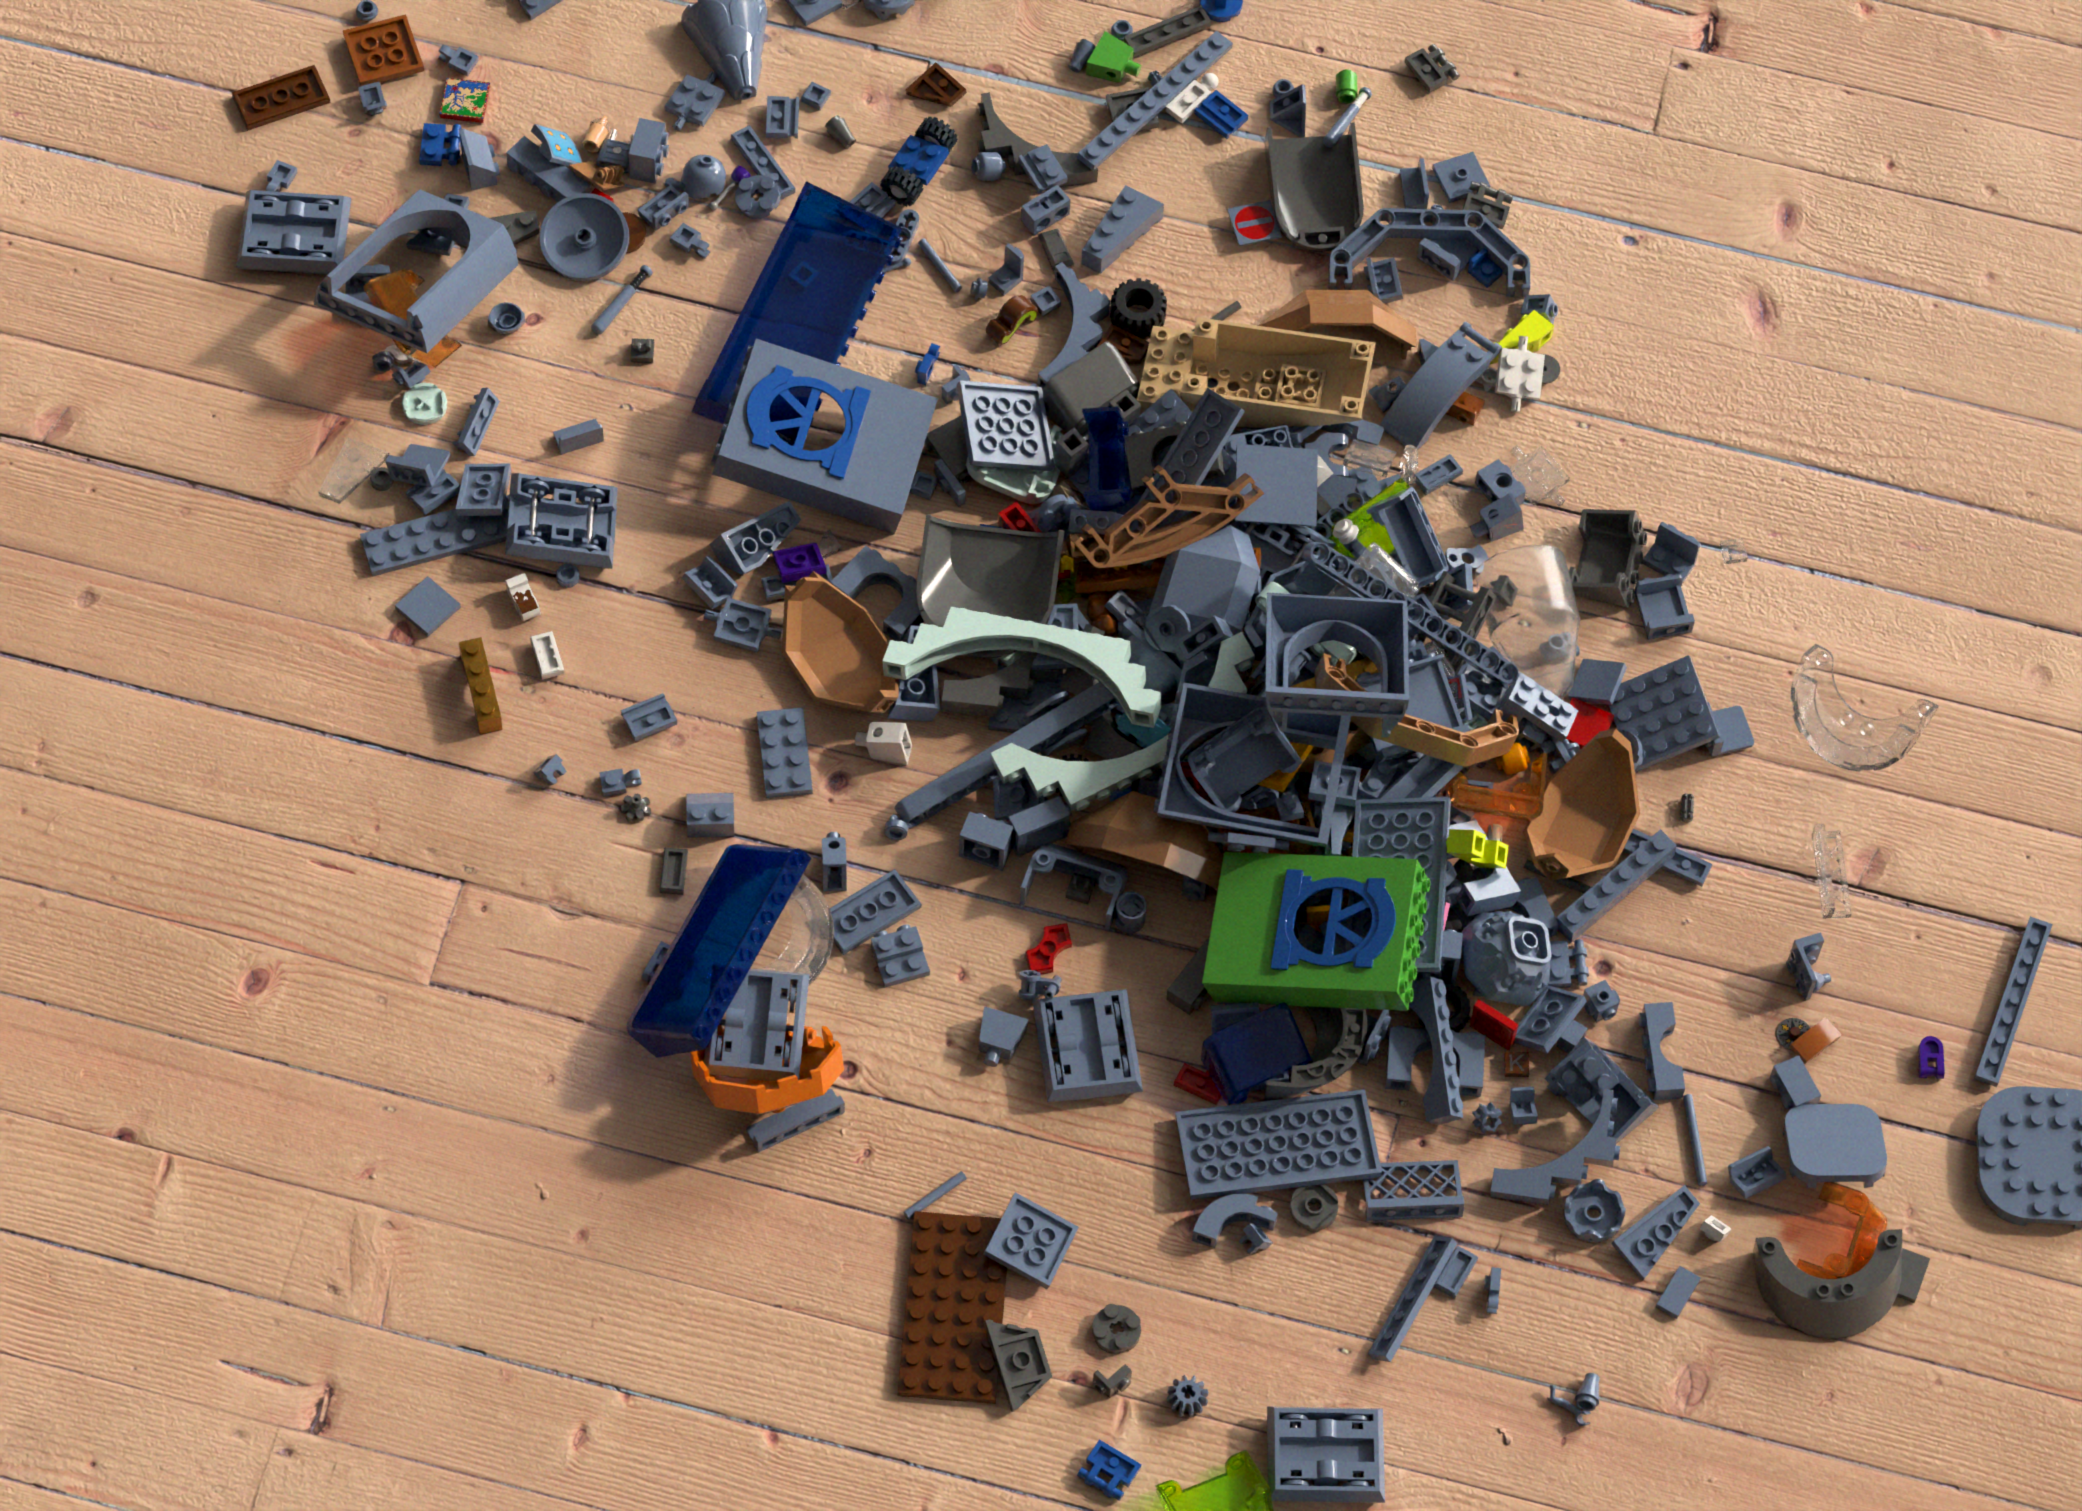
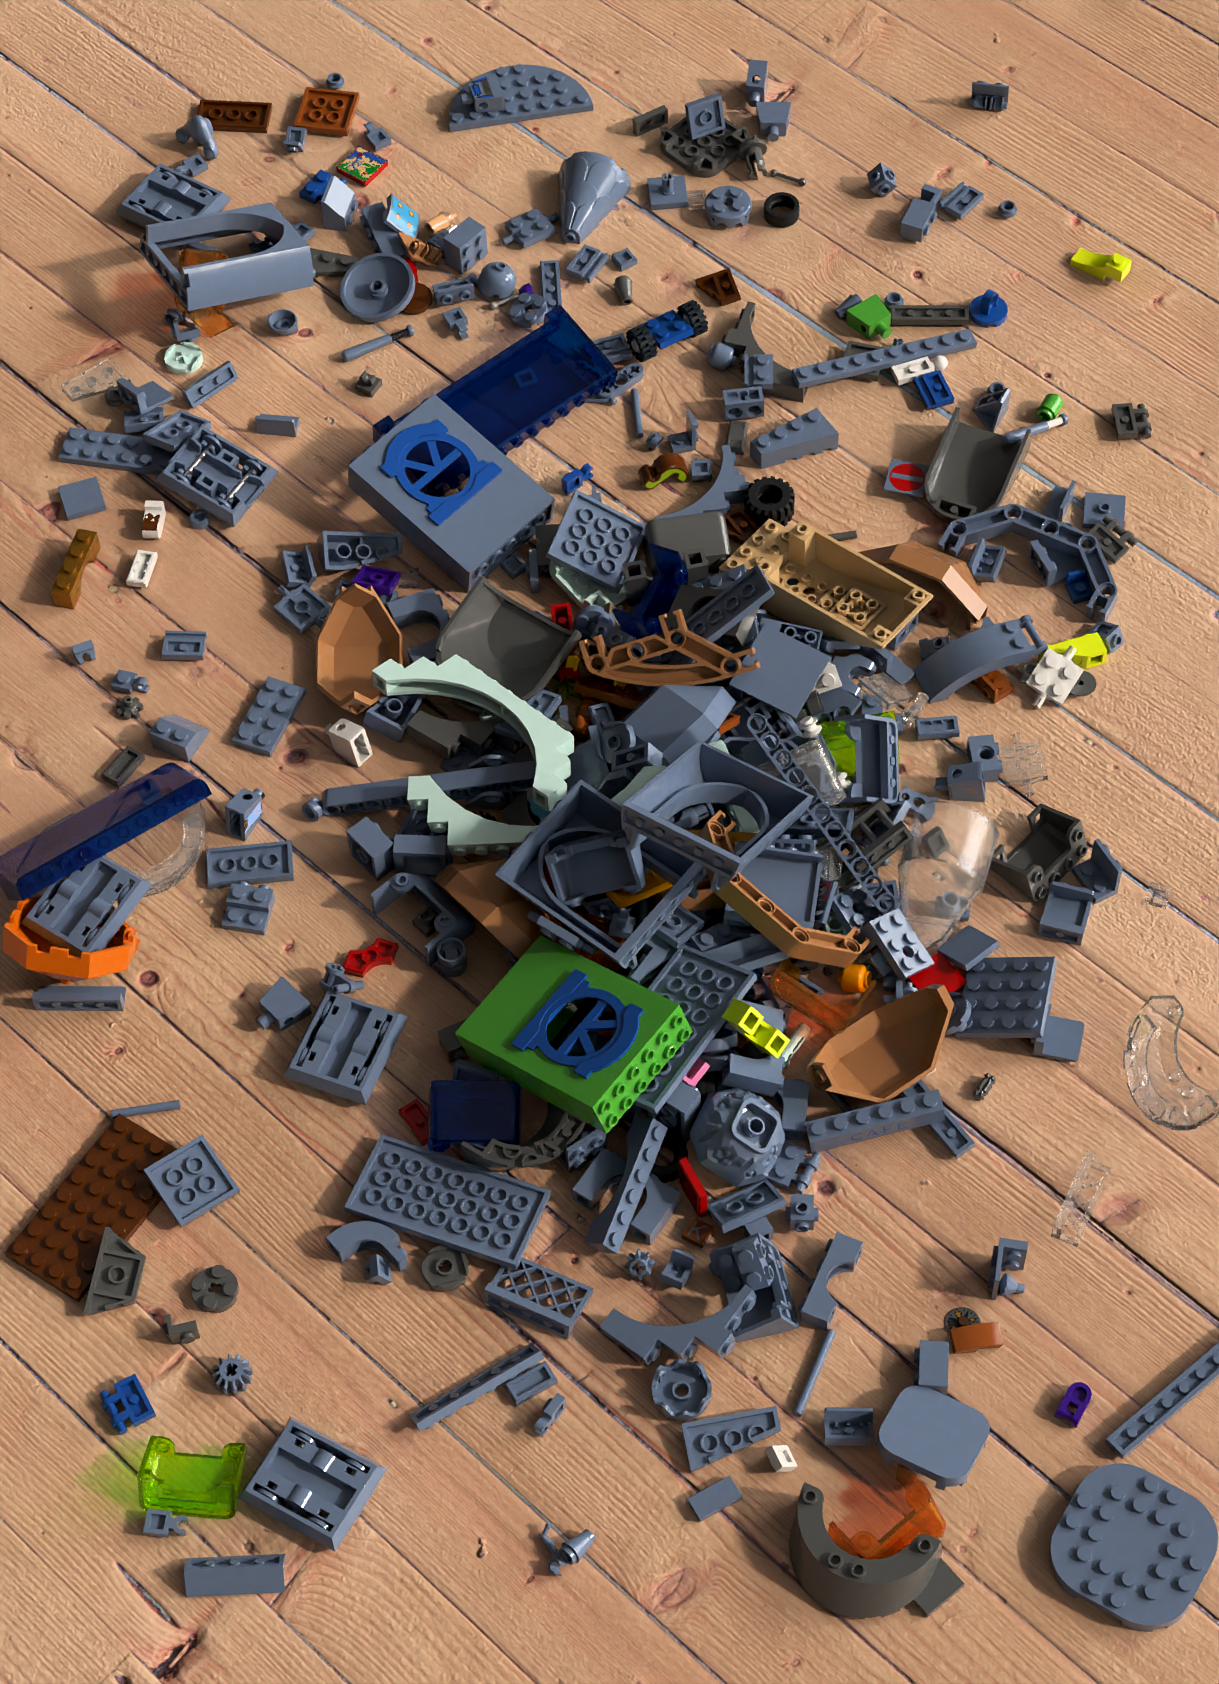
camera: 35 degrees right, 5 degrees down
(267, 133) = (202, 132): none -> sand blue head

